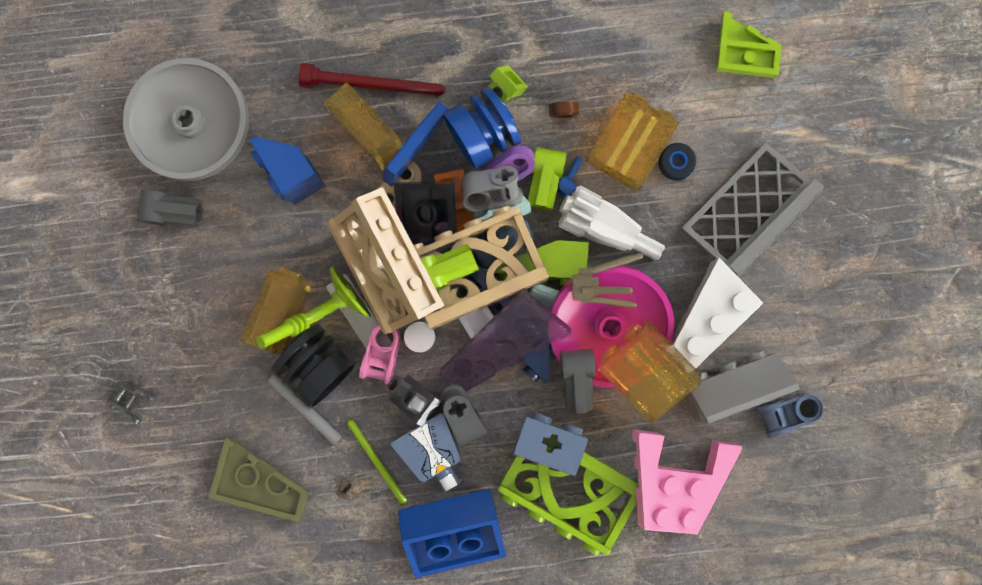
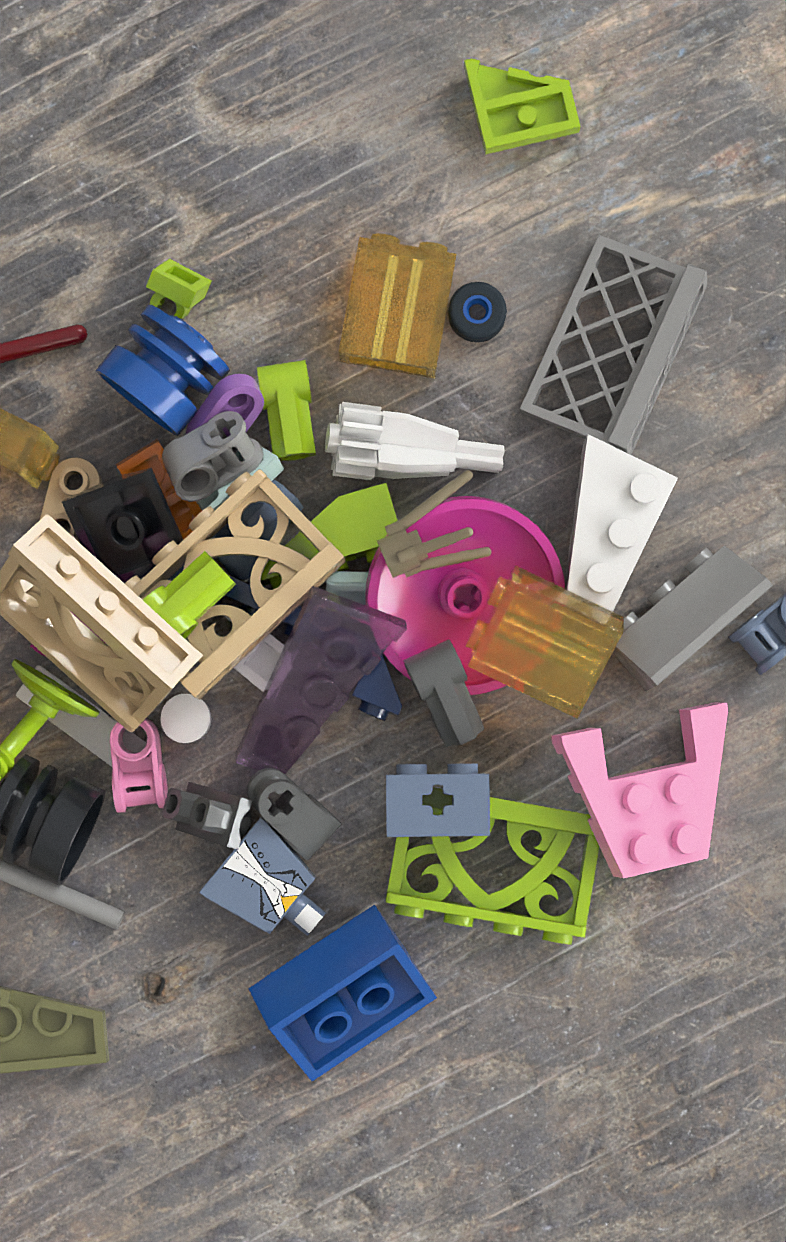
camera: 20 degrees left, 0 degrees up
(377, 462) = (190, 930): lime axle -> none
(414, 144) = (70, 431): blue tile -> none
(563, 109) = (277, 296): reddish brown tile -> none
(566, 186) = (323, 409): blue hand -> none

